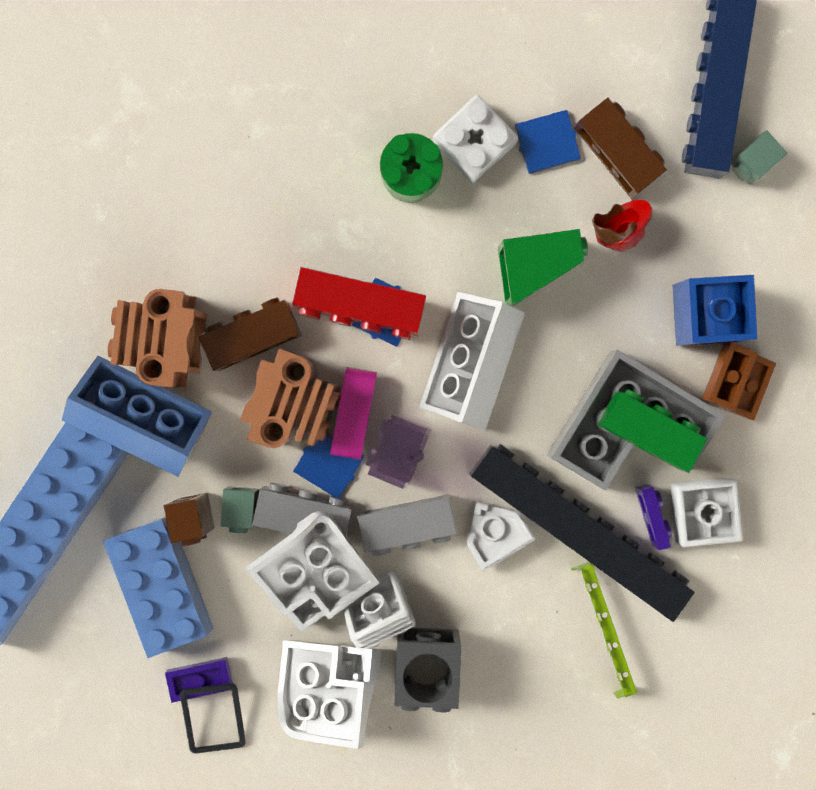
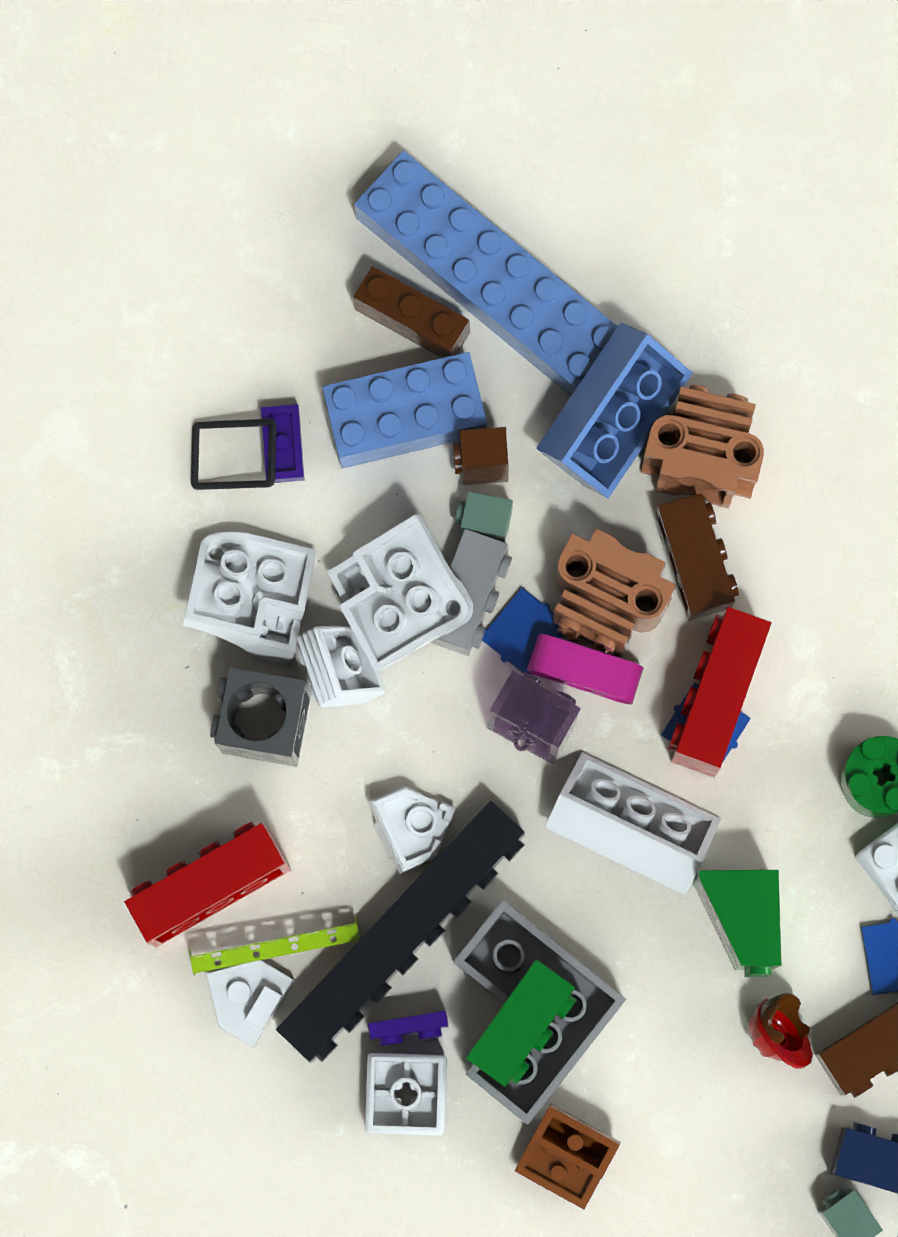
camera: 105 degrees right, 10 degrees down
(76, 591) = (411, 314): none -> reddish brown brick
(406, 525) = (438, 717): light grey brick -> none
(570, 697) = (207, 884): none -> red brick
(646, 643) = (247, 998): none -> white plate
(715, 310) = (661, 1129): blue brick -> none

